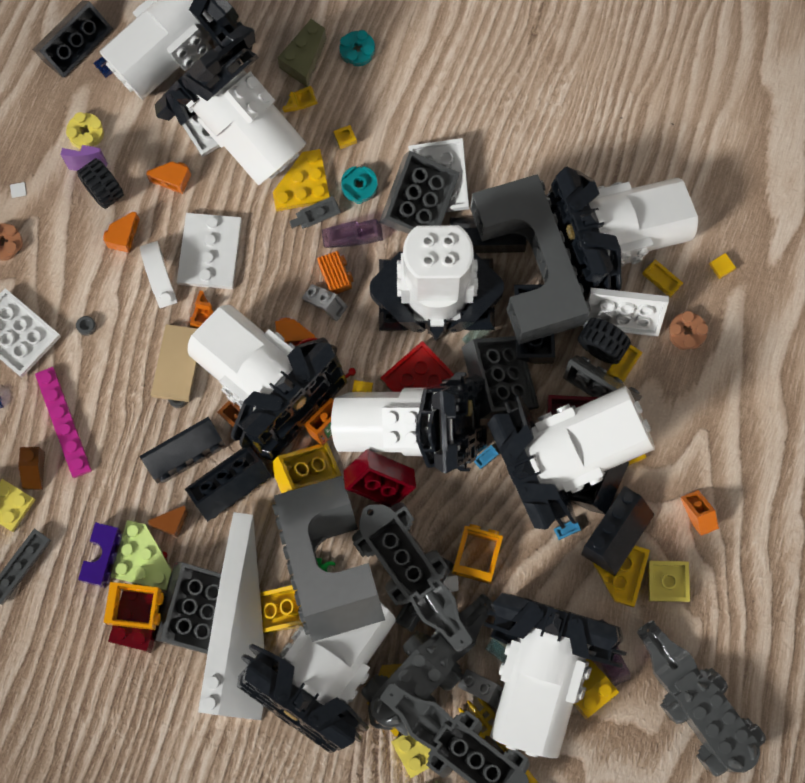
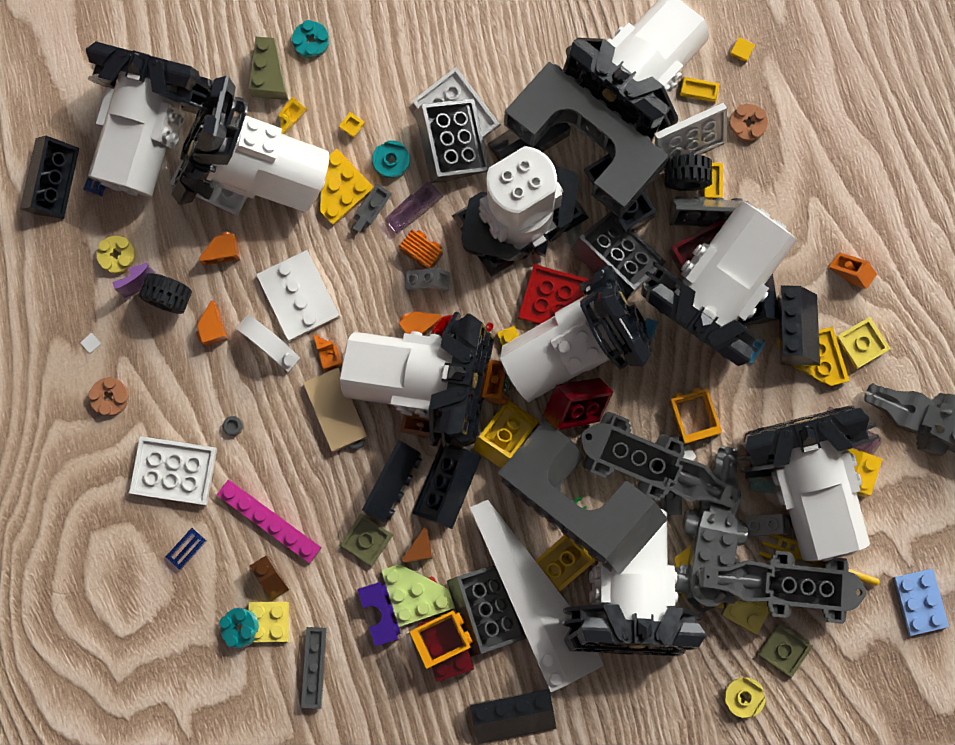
camera: 30 degrees left, 5 degrees up
(132, 487) = (366, 540): none -> olive tile
(155, 714) = (513, 716): none -> black slope

